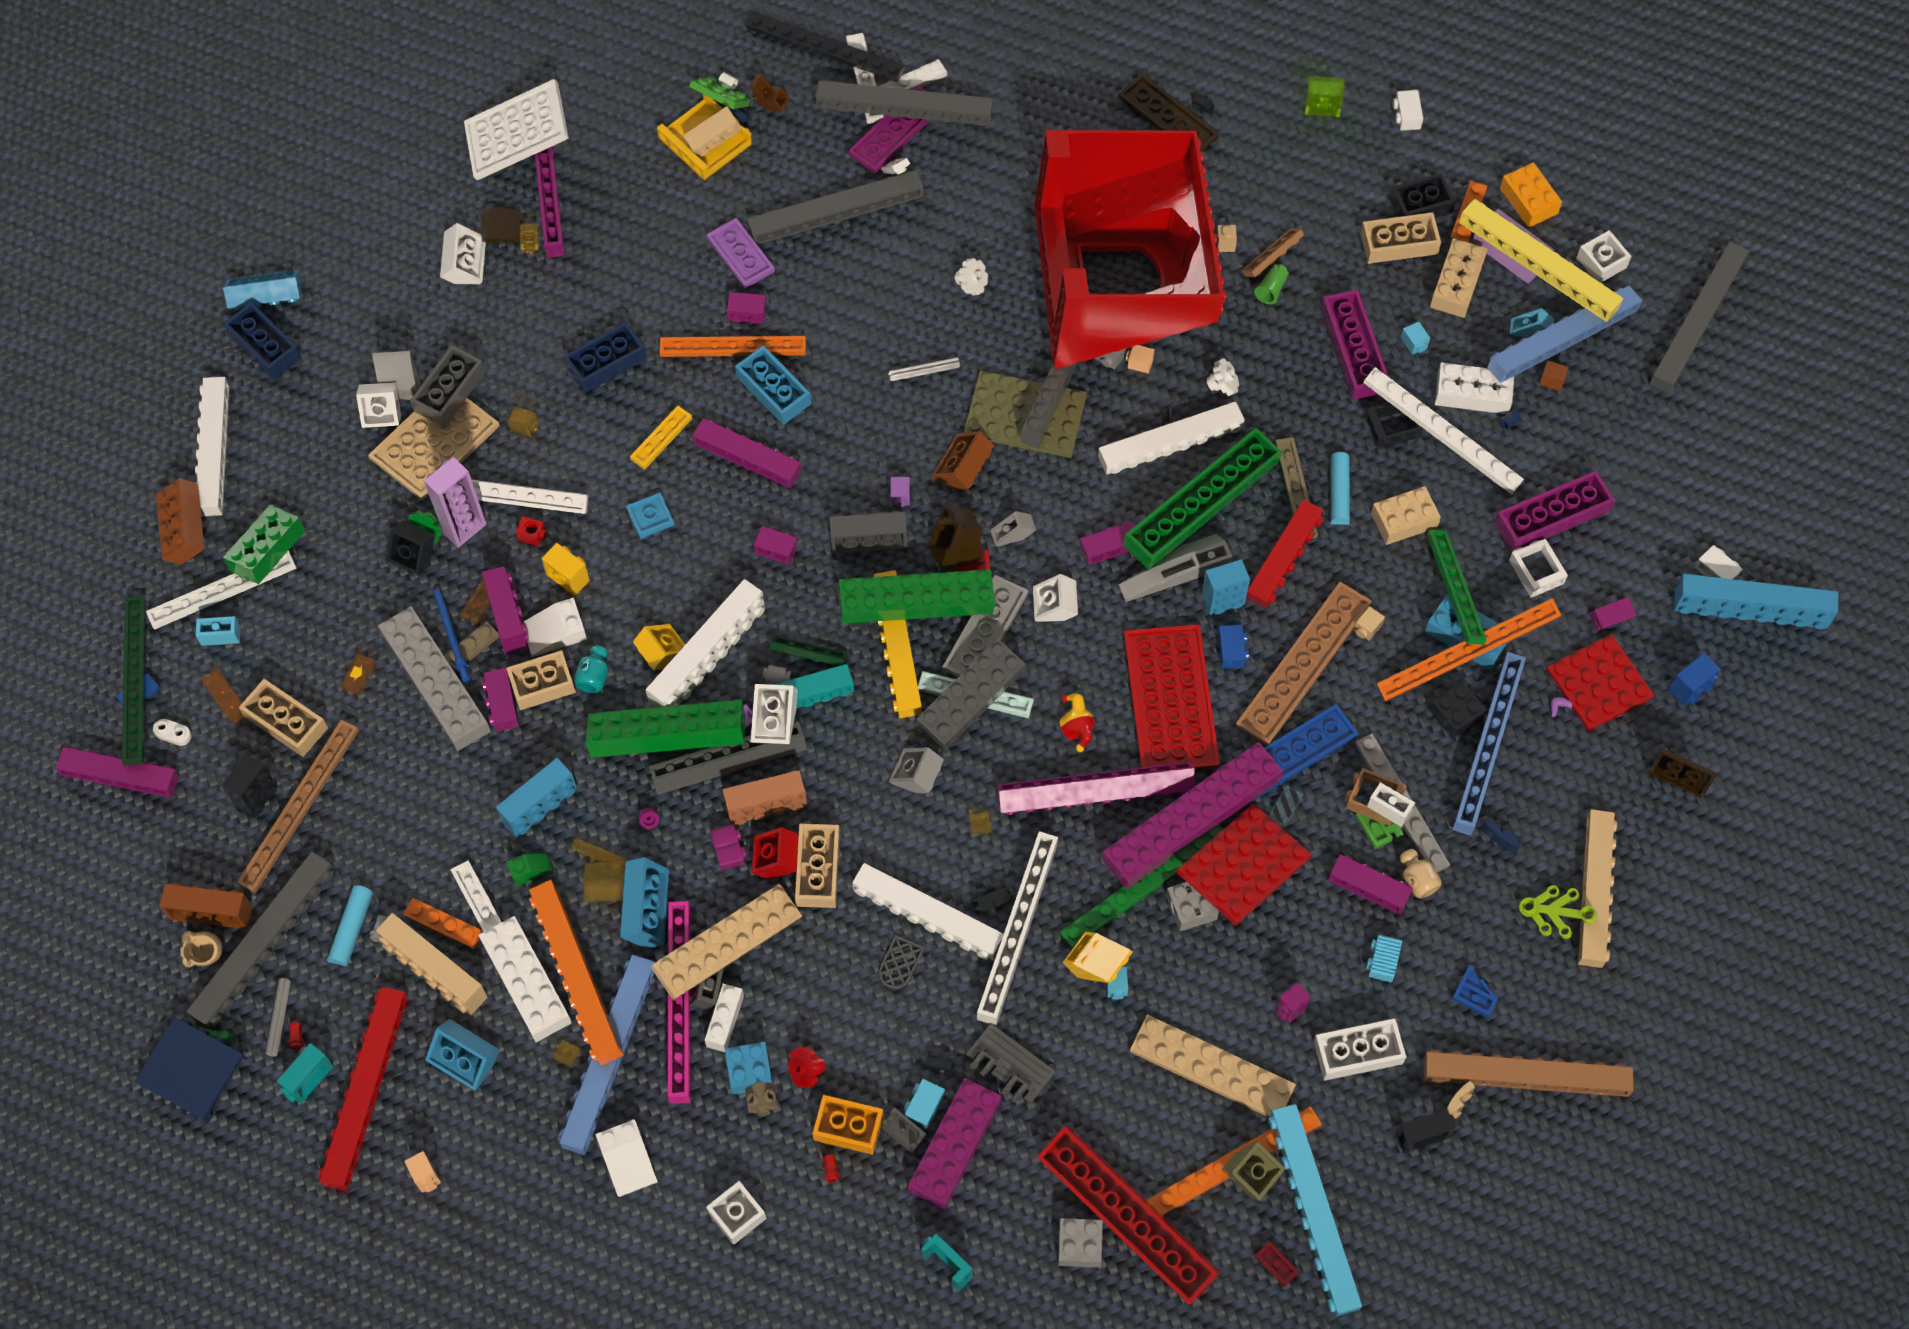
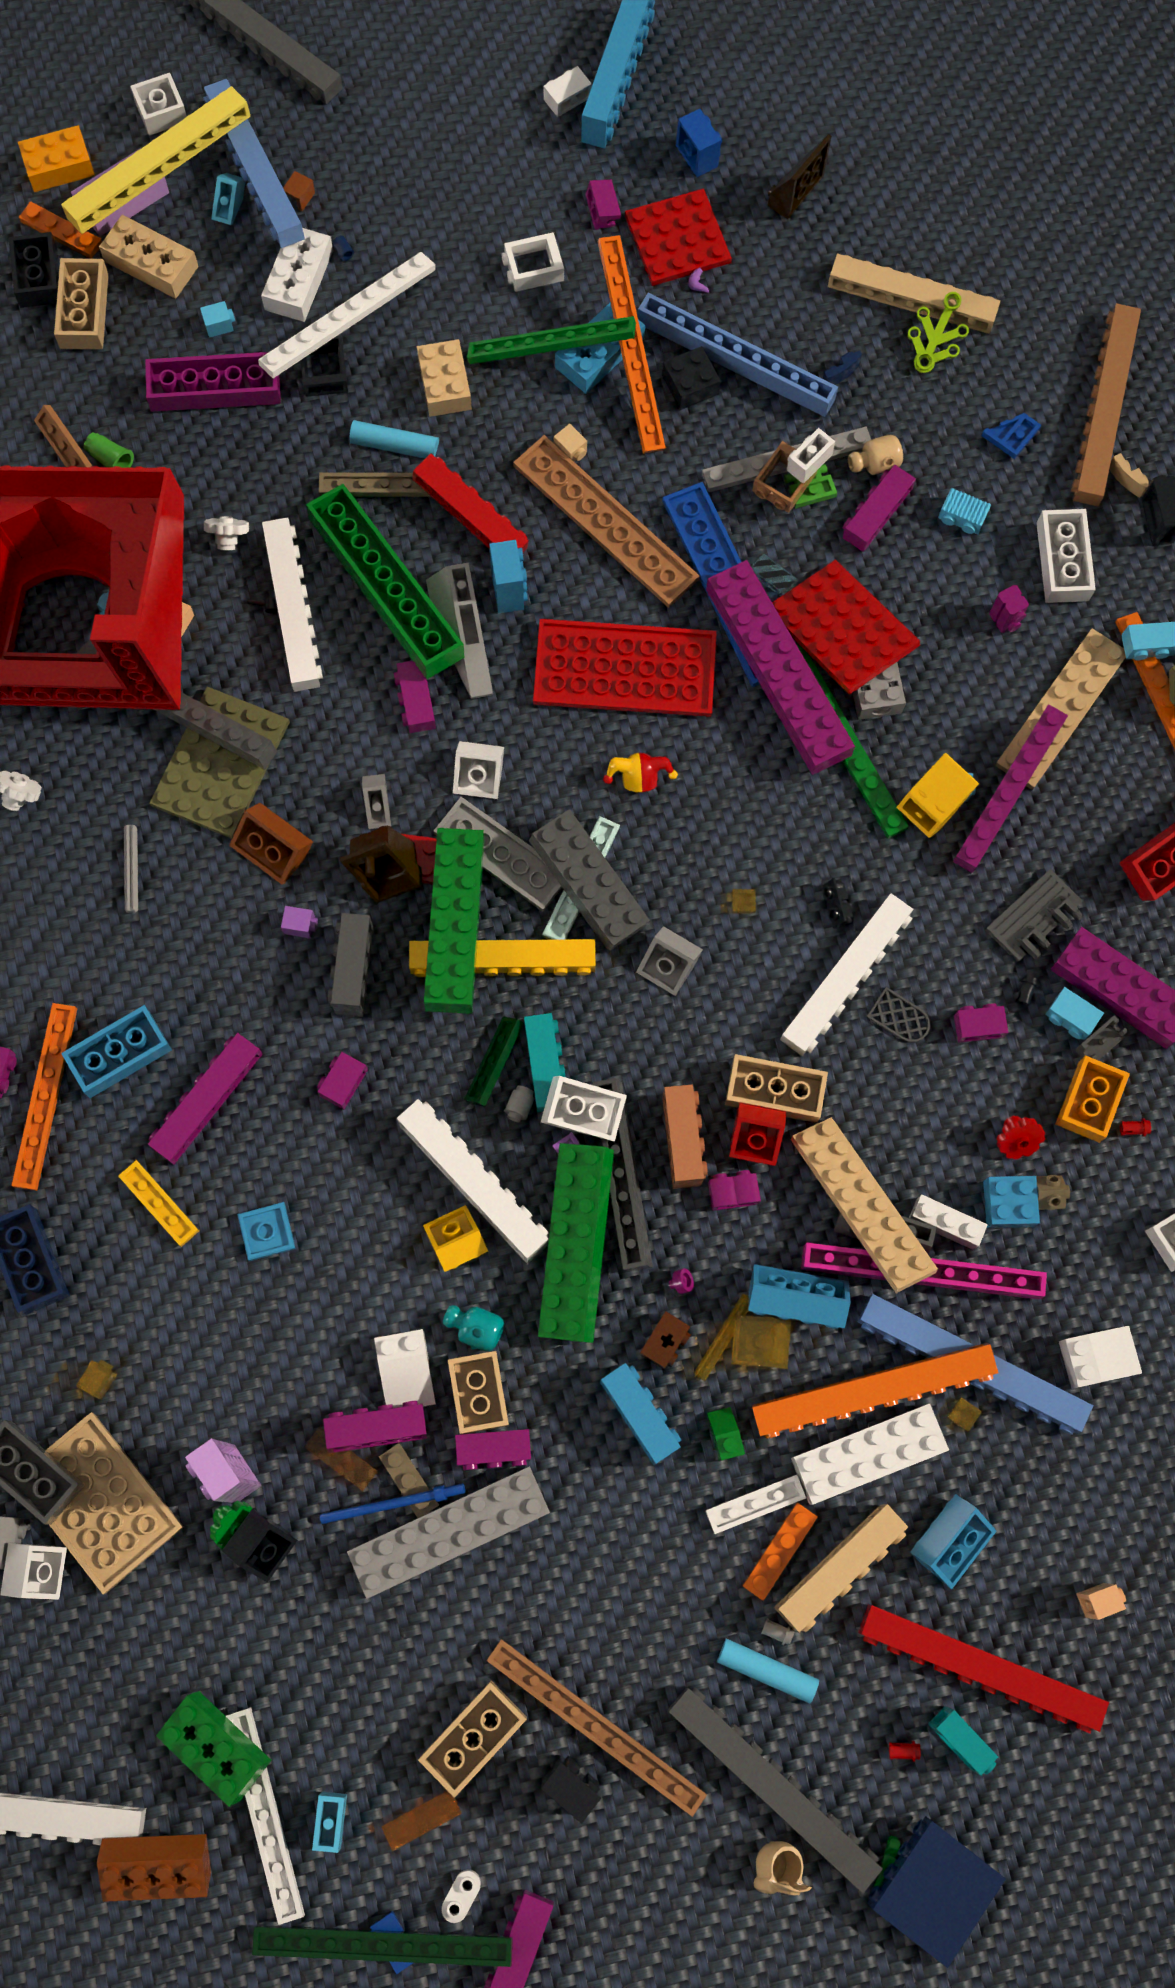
camera: 85 degrees left, 10 degrees up
(206, 905) = (723, 1860): dark orange brick -> none
(278, 1017) = (875, 1773): light grey axle -> none
(358, 674) = (421, 1633): clear orange tile -> none
(527, 525) = (251, 1389): red brick -> none
(531, 496) = (203, 1401): white plate -> none
(565, 569) = (329, 1343): yellow brick -> none
(594, 804) = (653, 1348): none -> reddish brown brick
(902, 1026) = (980, 1023): none -> magenta brick
(1017, 928) = (883, 878): white brick -> none
(1096, 787) = (725, 766): brick -> none
(1120, 1022) = (1010, 788): none -> magenta brick
(1232, 646) = (572, 590): blue brick -> none
(1554, 511) = (471, 228): magenta brick -> none

